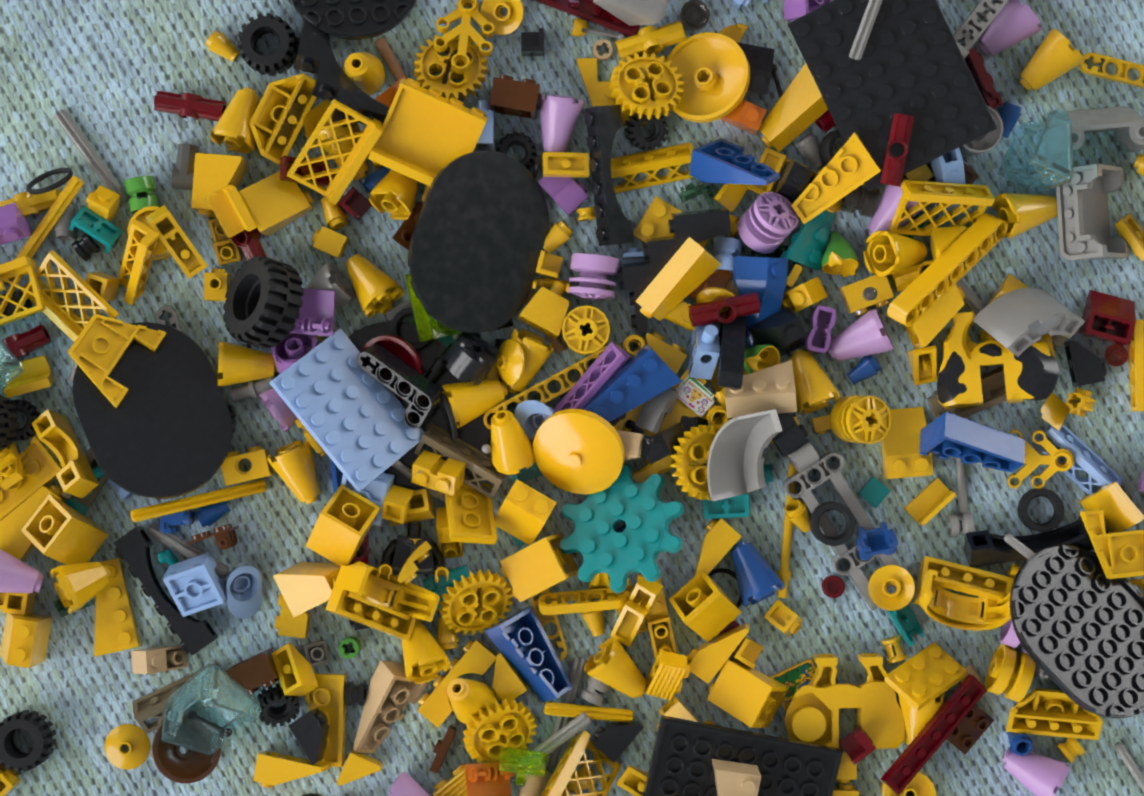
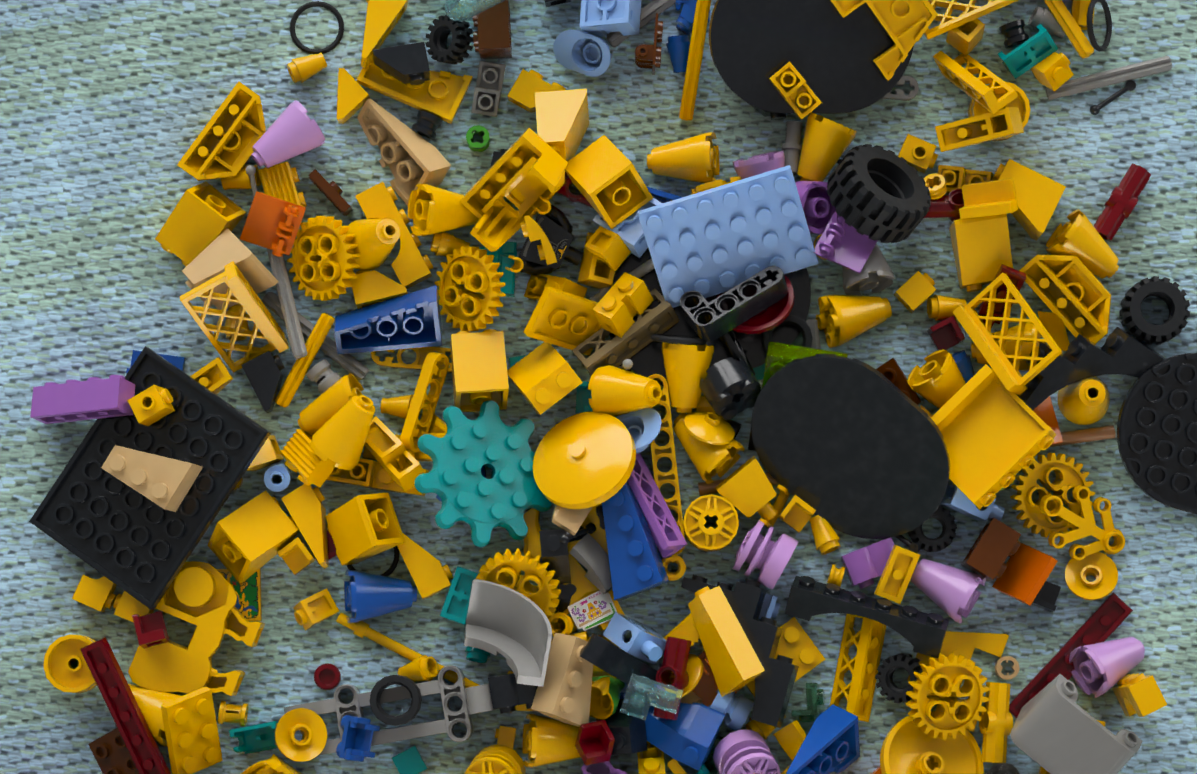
camera: 115 degrees right, 5 degrees down
(91, 137) = (1130, 86): none -> black hinge
(138, 187) = (1055, 114): bright green wheel -> none
(183, 173) = (1053, 167): dark grey piece -> none
(205, 404) = (795, 90): none -> yellow slope
(222, 46) = (1172, 262): yellow cone -> none
(235, 264) = (933, 180): none -> yellow bush
(235, 474) = (713, 92): yellow brick -> none
(294, 671) = (477, 70): yellow slope -> none
(522, 763) = (281, 268): clear neon green plate -> none
(523, 61) = (1025, 574): none -> orange tile
(581, 28) = (1039, 654): hinge -> none
(637, 654) = (345, 433): none -> yellow cone
(671, 355) = (646, 603): yellow slope -> none
(685, 694) = (280, 469): none -> light blue brick
(747, 325) = (645, 693): none -> clear light blue plate
(801, 349) = (595, 742): none -> dark red panel

